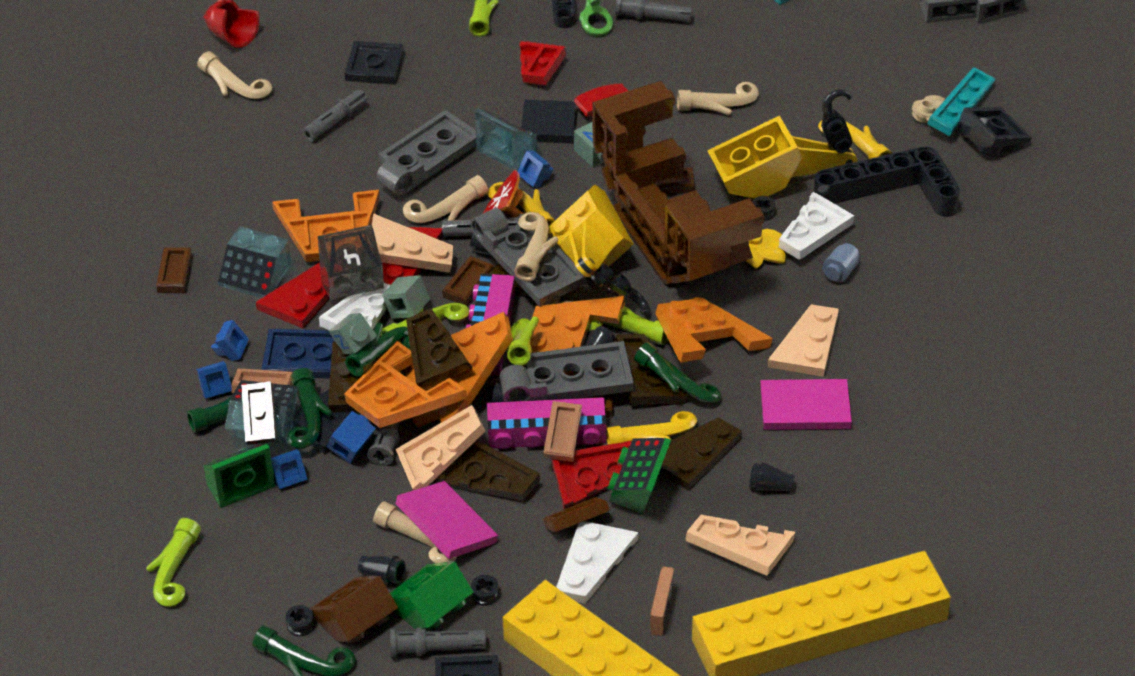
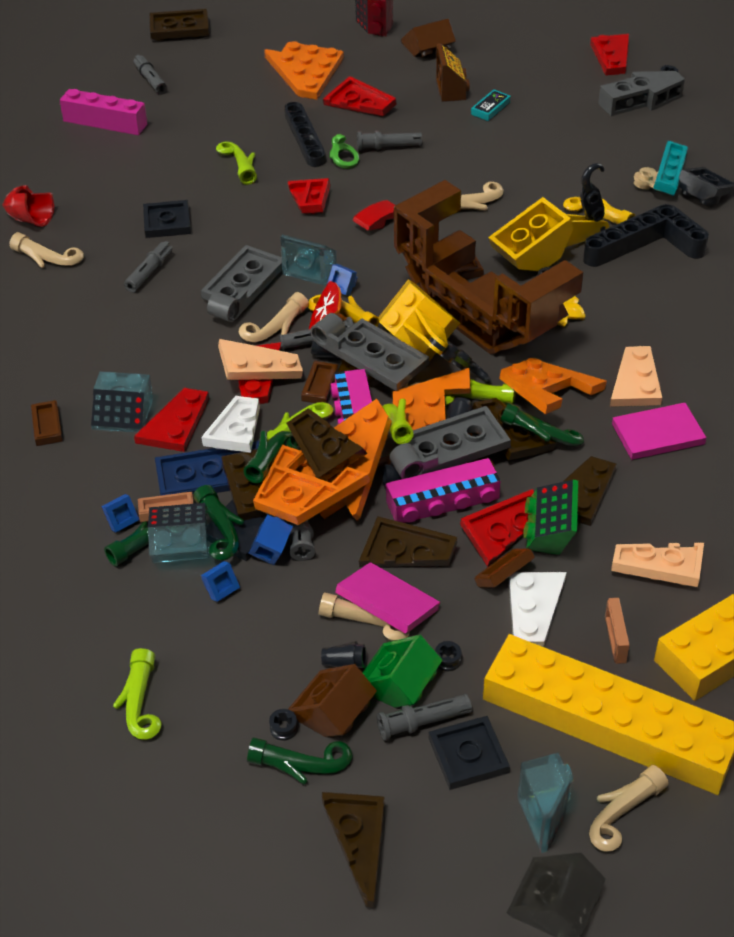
camera: 15 degrees left, 0 degrees up
(230, 341) = (122, 475): blue tile -> none
(240, 474) = (177, 595): green slope -> none
(259, 413) = (182, 533): plate -> none
(306, 229) = (178, 366): orange wing -> none
(350, 262) = (215, 383): clear smoke slope -> none
(352, 333) = (244, 444): sand green brick -> none
(406, 296) = (273, 405): sand green brick -> none
(439, 447) = (356, 532): light nougat wing -> none
(528, 264) = (379, 341): tan plant -> none
(550, 120) = (340, 237): black tile -> none
(562, 431) = (466, 494): nougat tile -> none
(584, 145) = (382, 251): sand green brick -> none
(680, 423) = (558, 469): yellow plant -> none
(768, 478) = (660, 500): black cone -> none
(814, 226) = (600, 283): white wing -> none
(841, 262) = (635, 308): sand blue brick -> none

